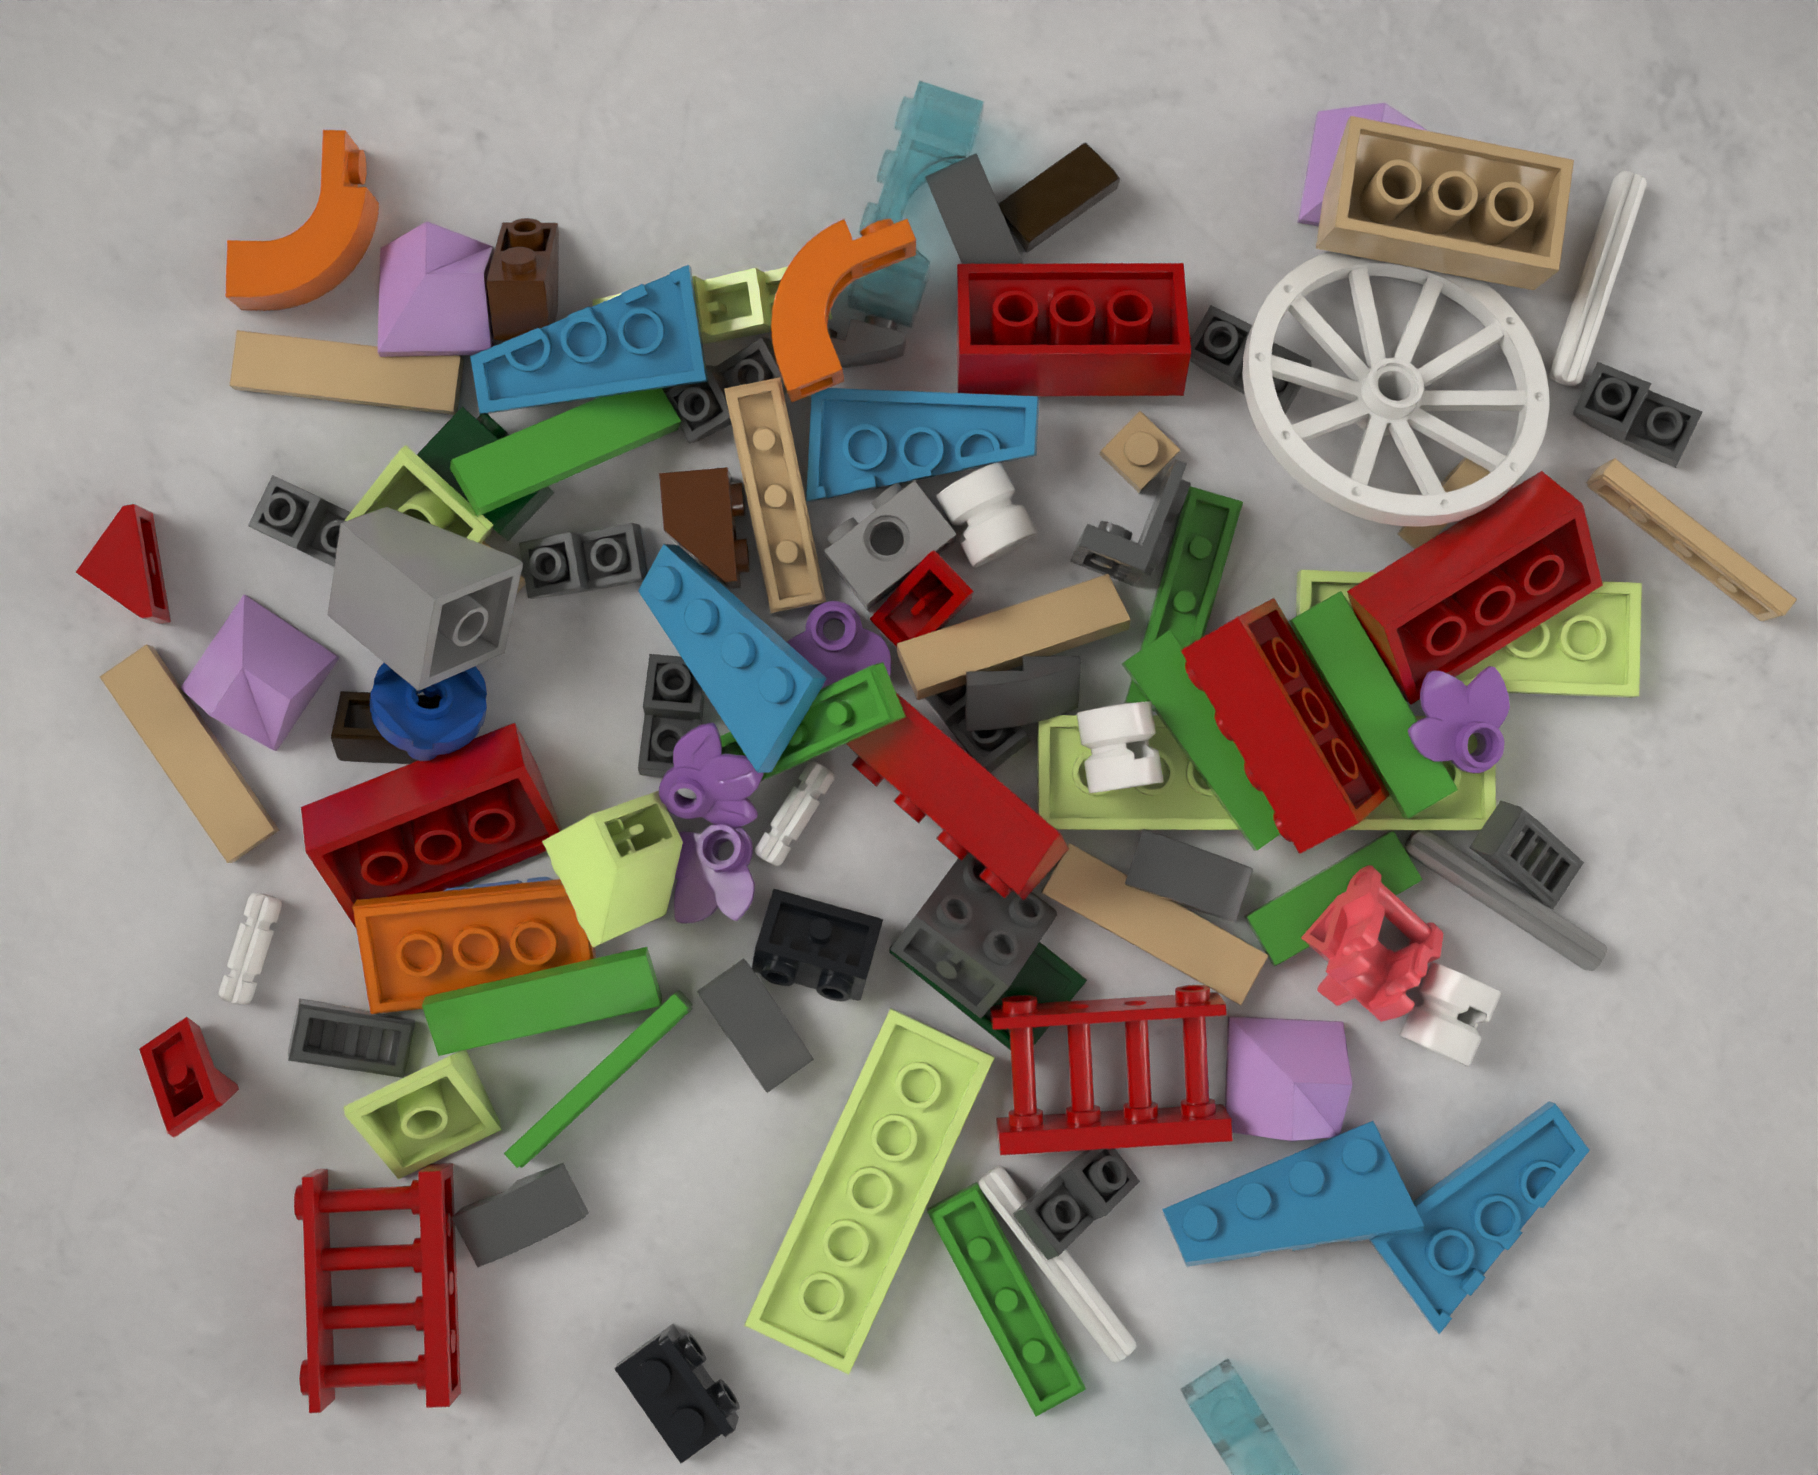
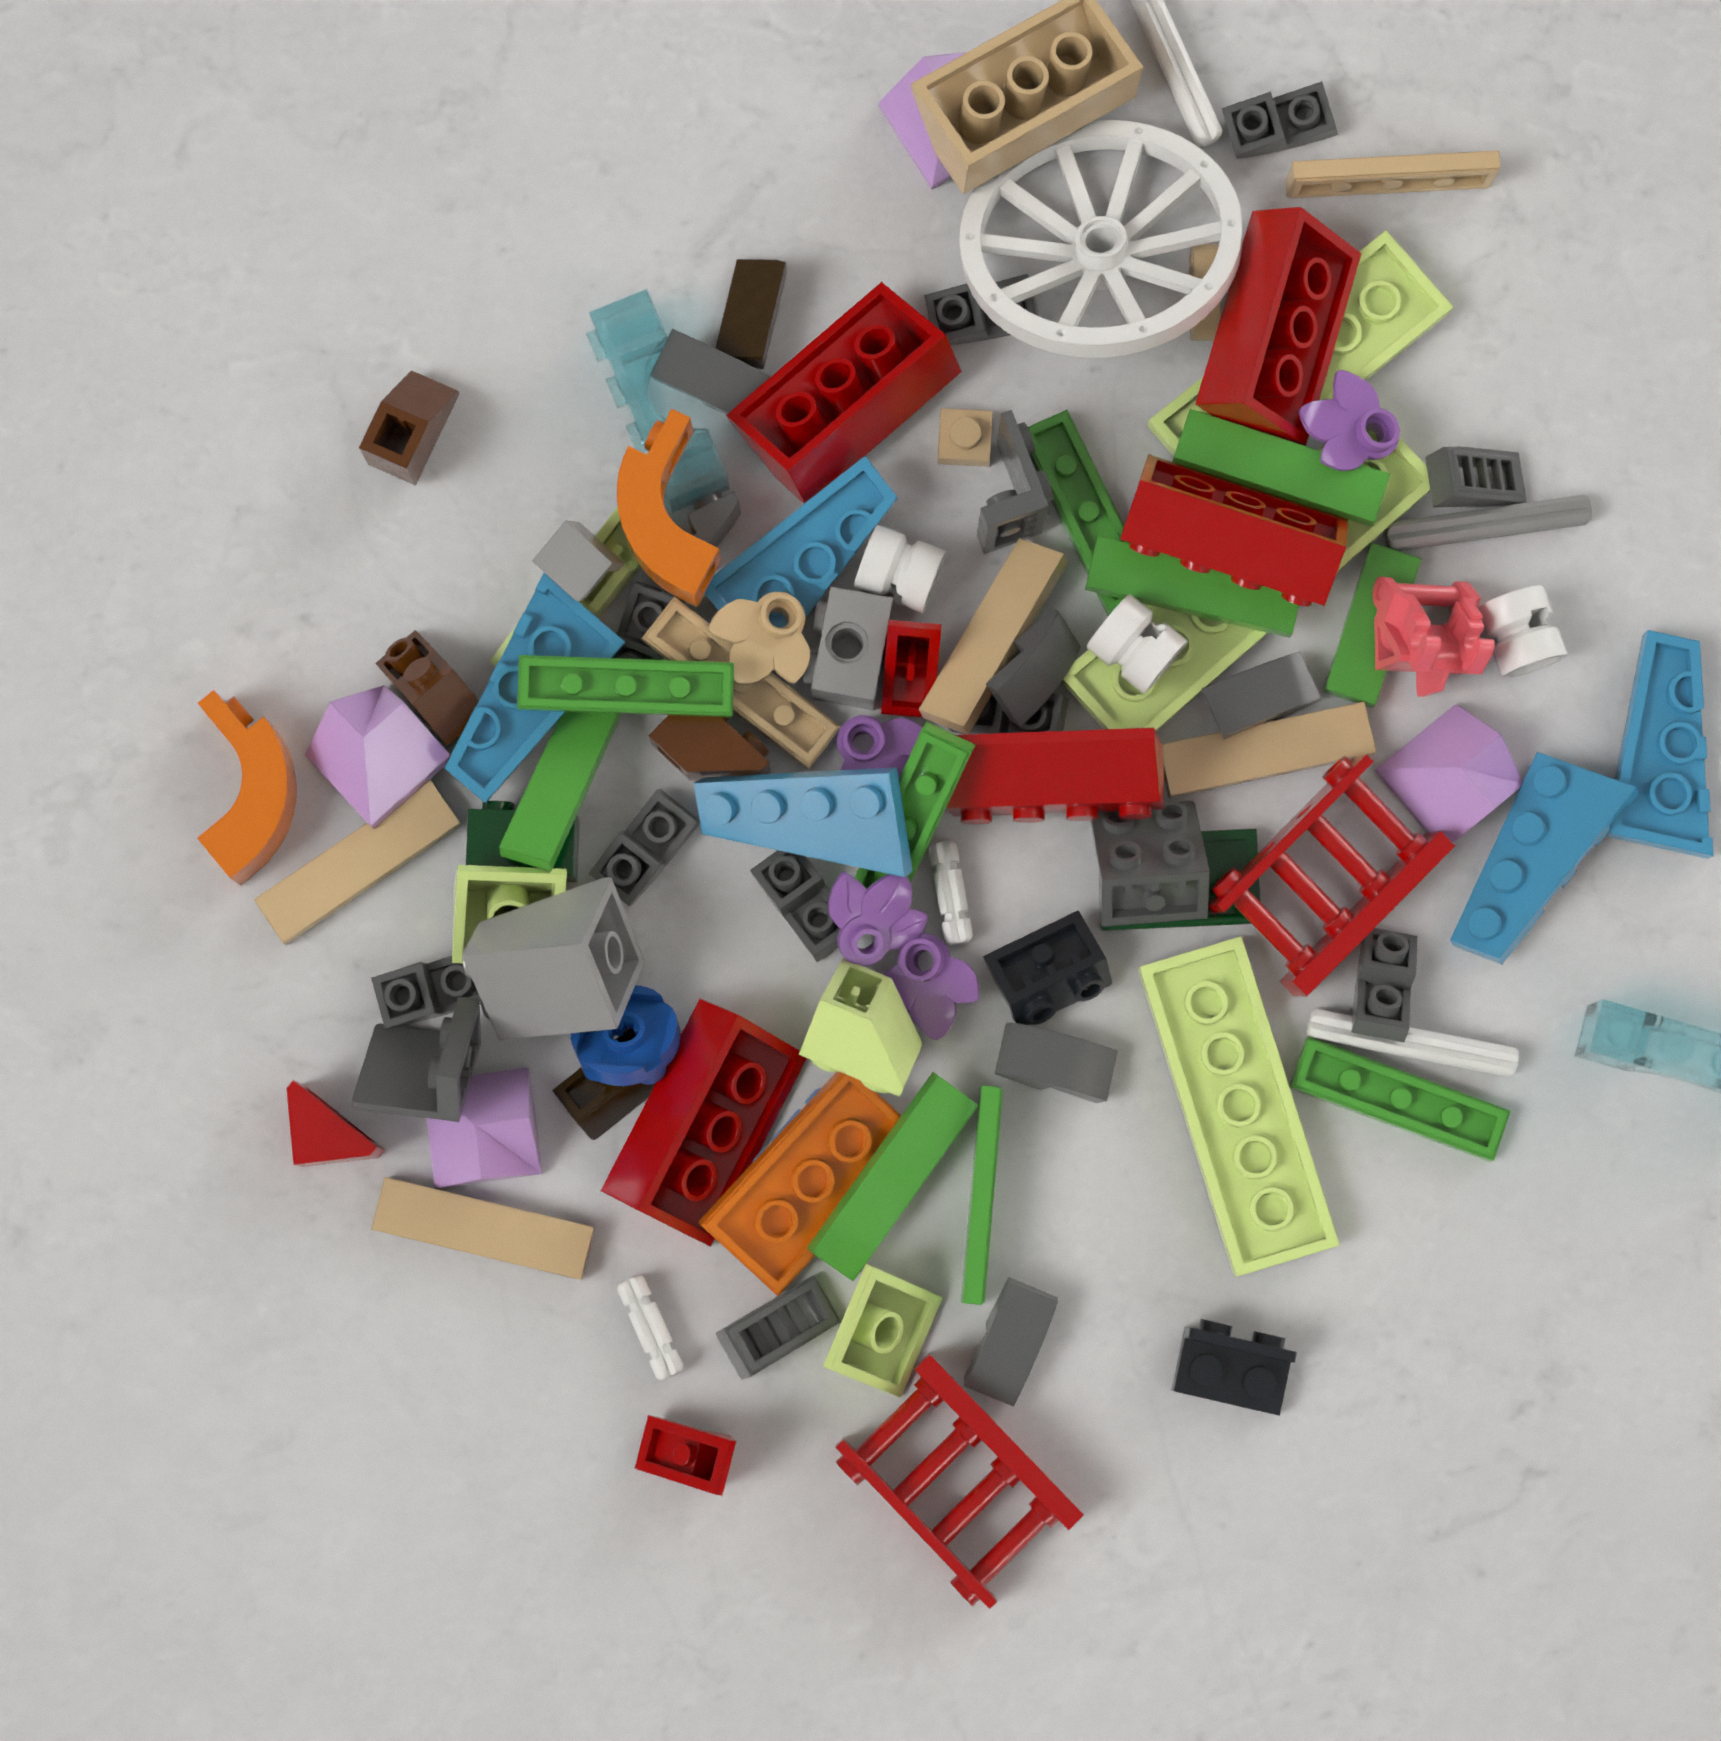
camera: 40 degrees left, 5 degrees down
(245, 583) = (420, 1068): none -> dark grey bracket
(672, 417) = (625, 686): none -> bright green tile
(694, 48) = (408, 426): none -> reddish brown slope
(726, 277) = (576, 559): none -> light grey panel
(814, 476) = (757, 643): none -> tan plate

